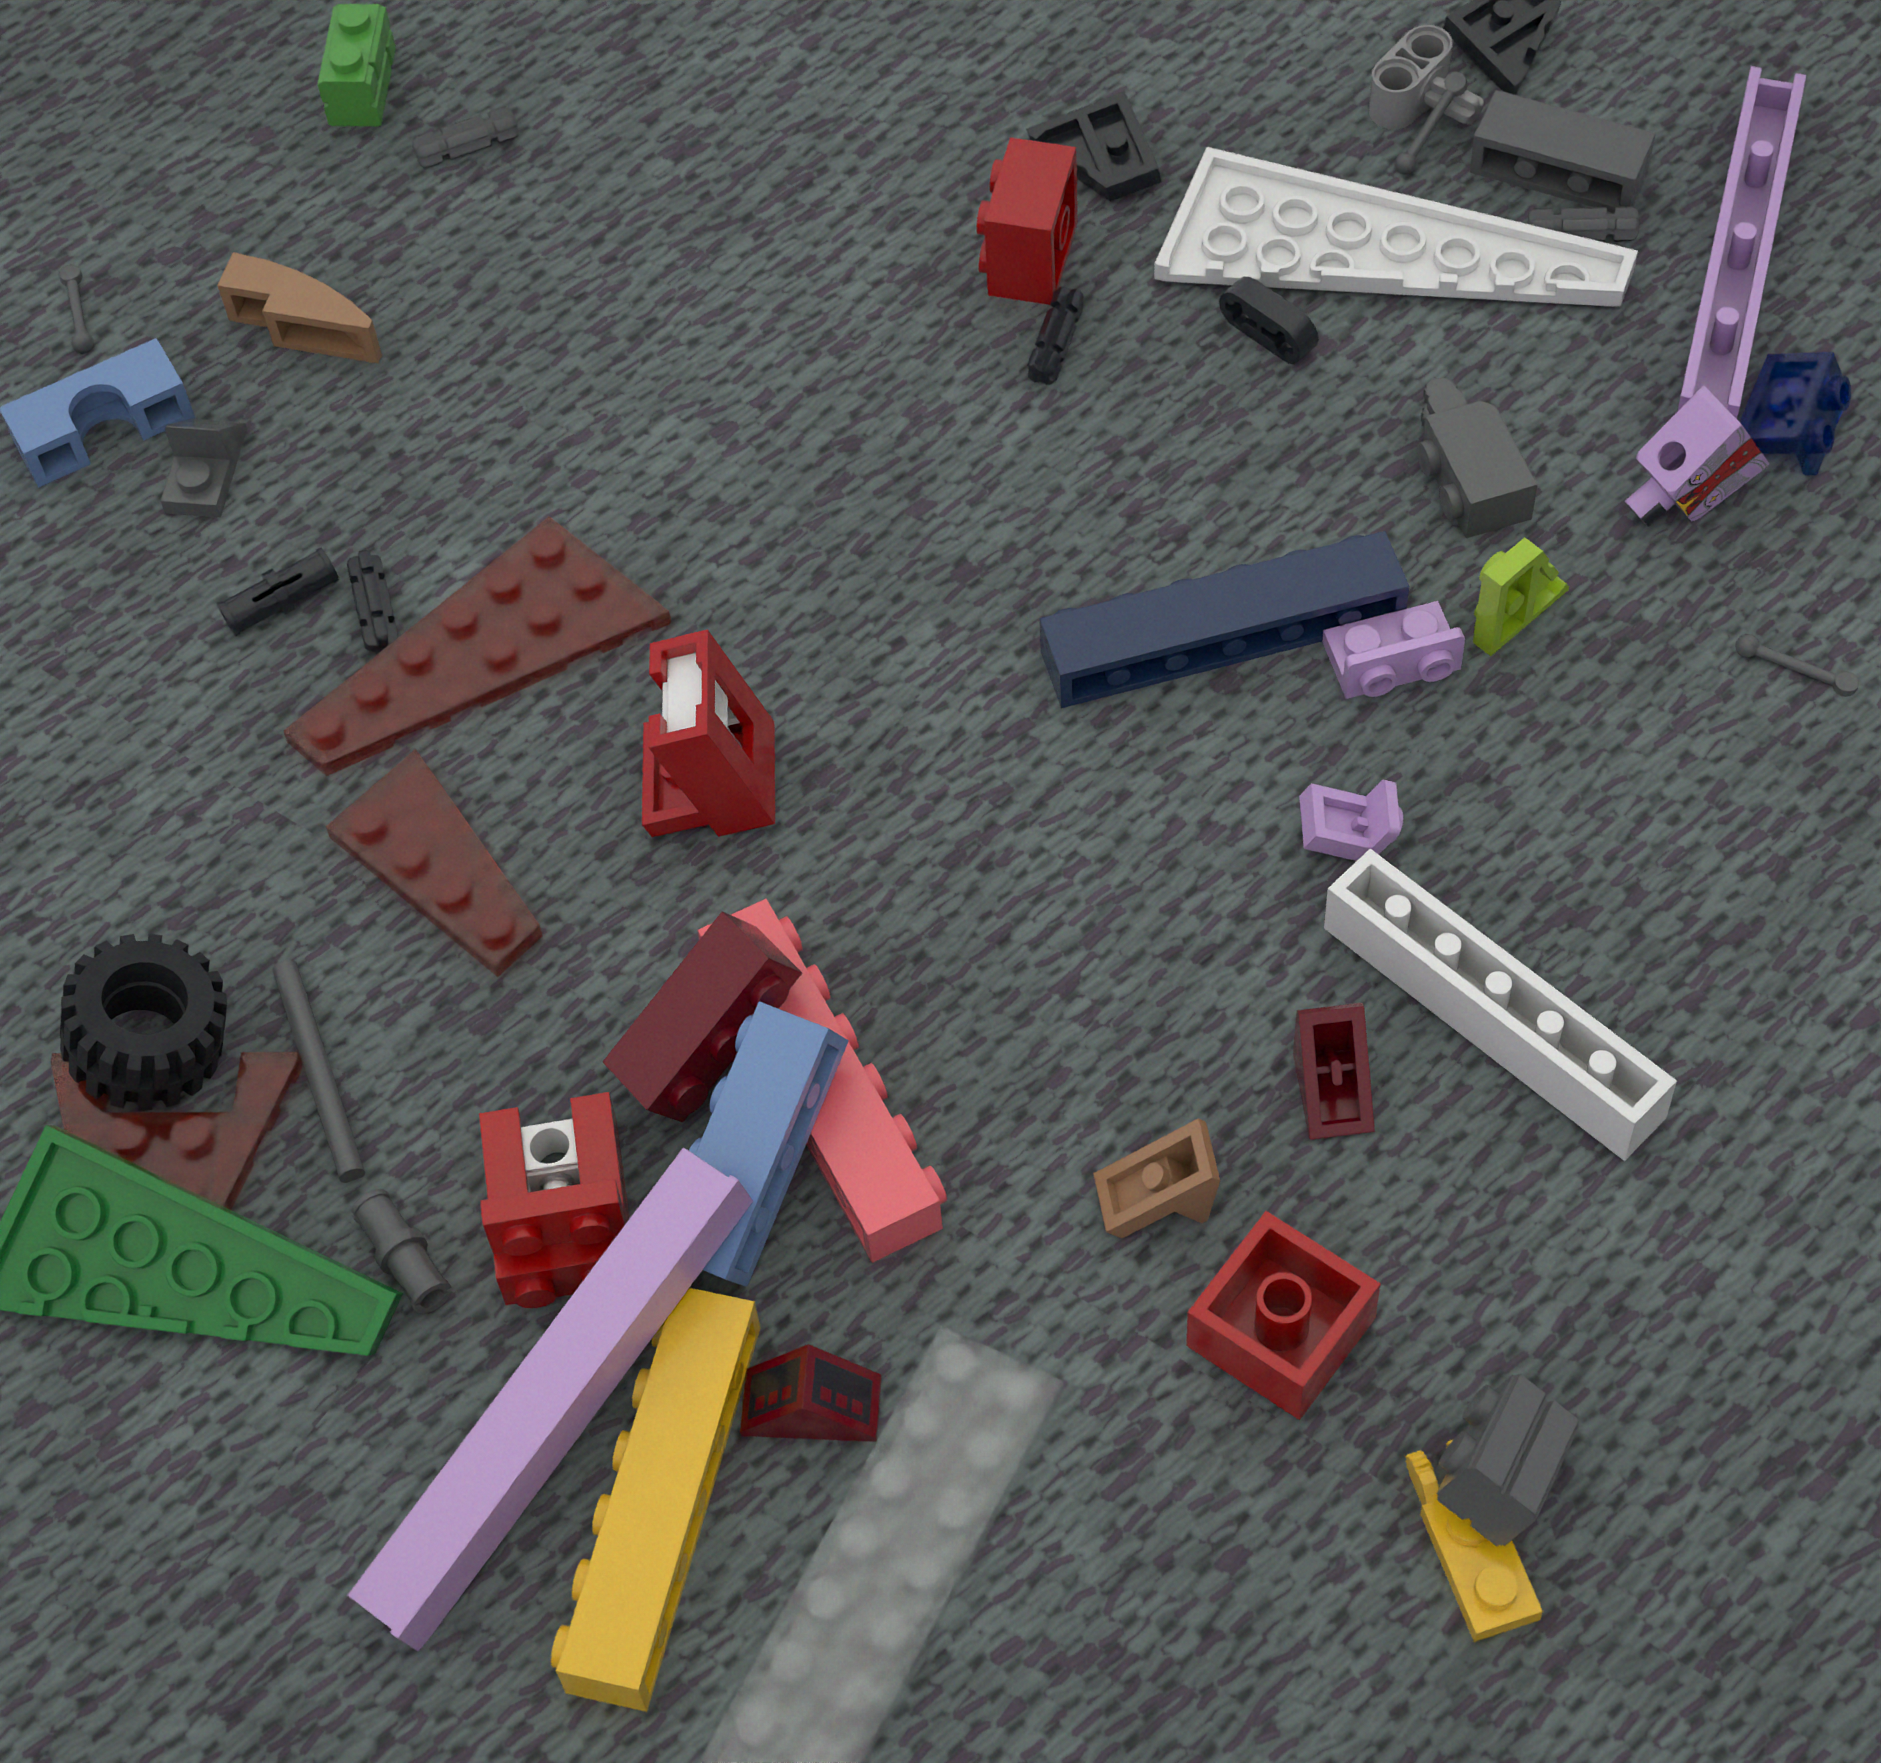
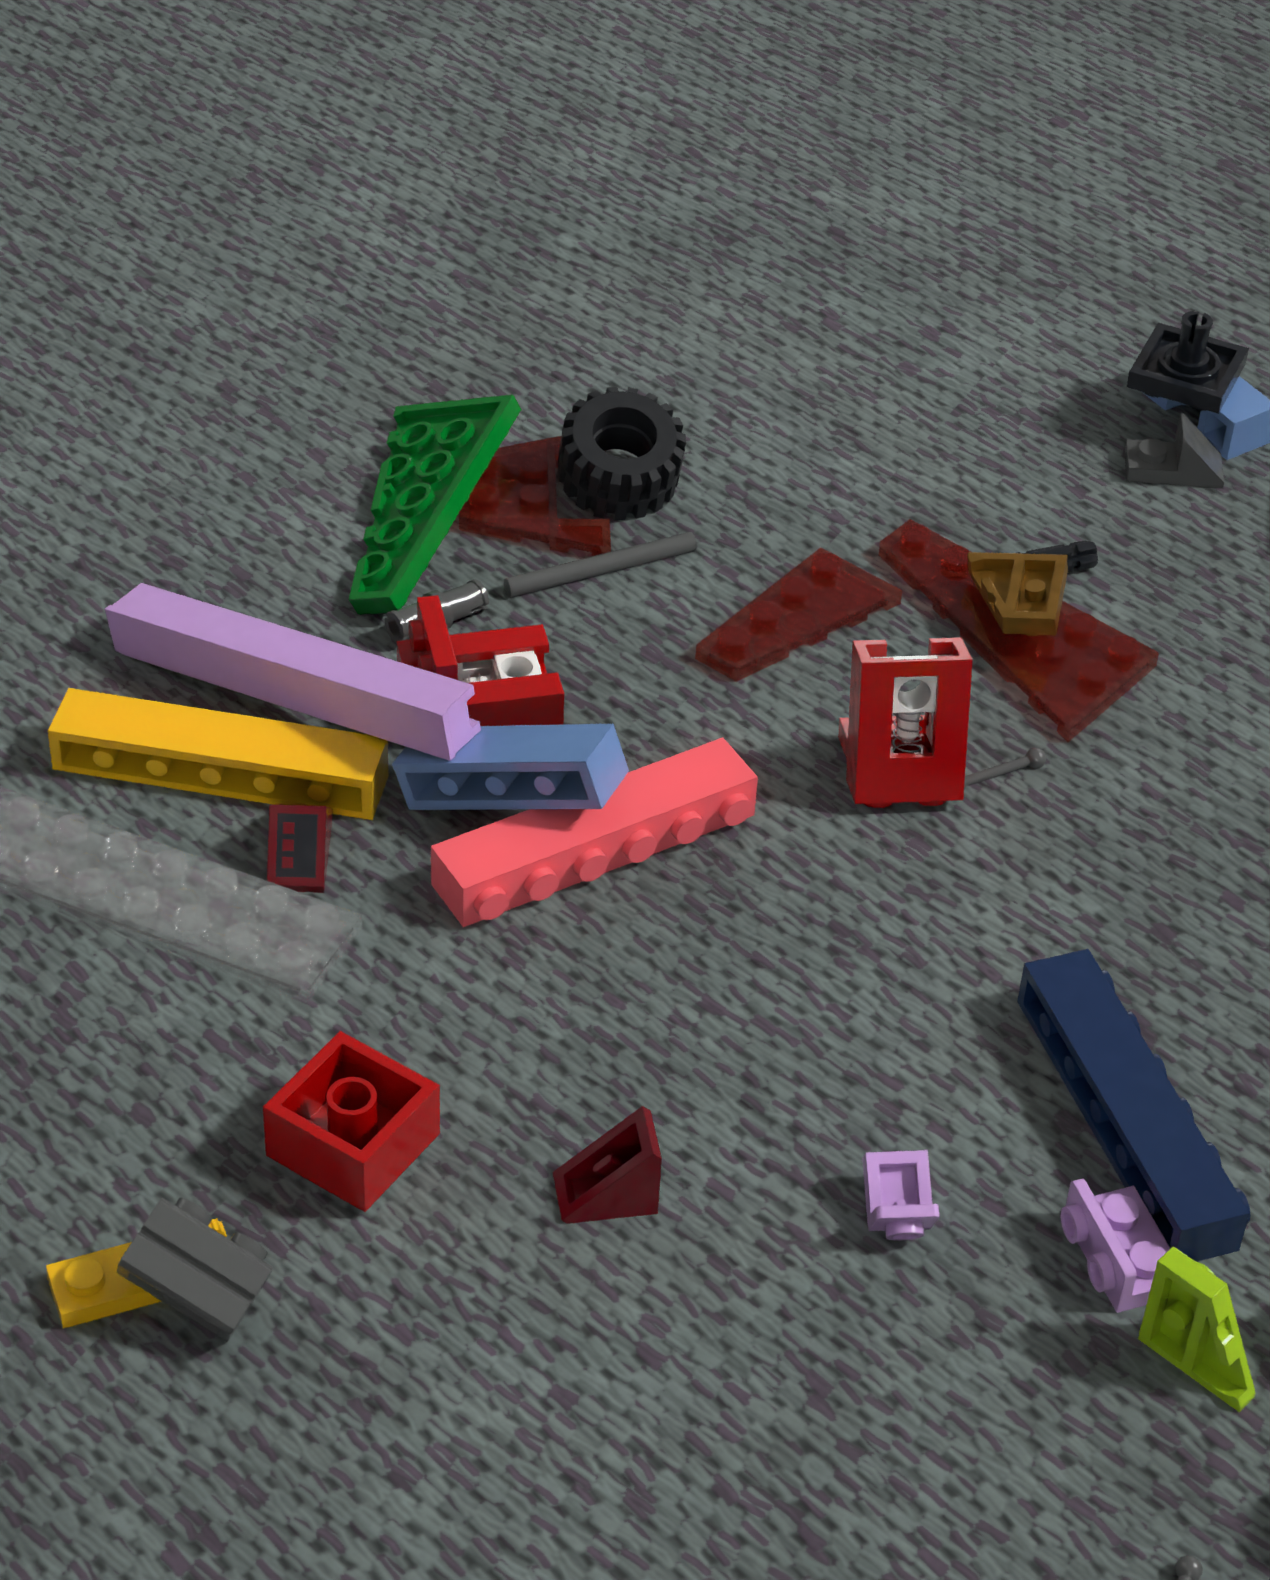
camera: 80 degrees right, 15 degrees down
(90, 405) = (1188, 364): none -> black plate
(278, 591) = (1048, 507): black pin -> none
(463, 619) = (1021, 589): none -> pearl gold wing
(694, 1019) = (654, 734): dark red brick -> none
(1160, 1179) = (493, 1055): medium nougat slope -> none
(1499, 1004) = (682, 1294): white brick -> none

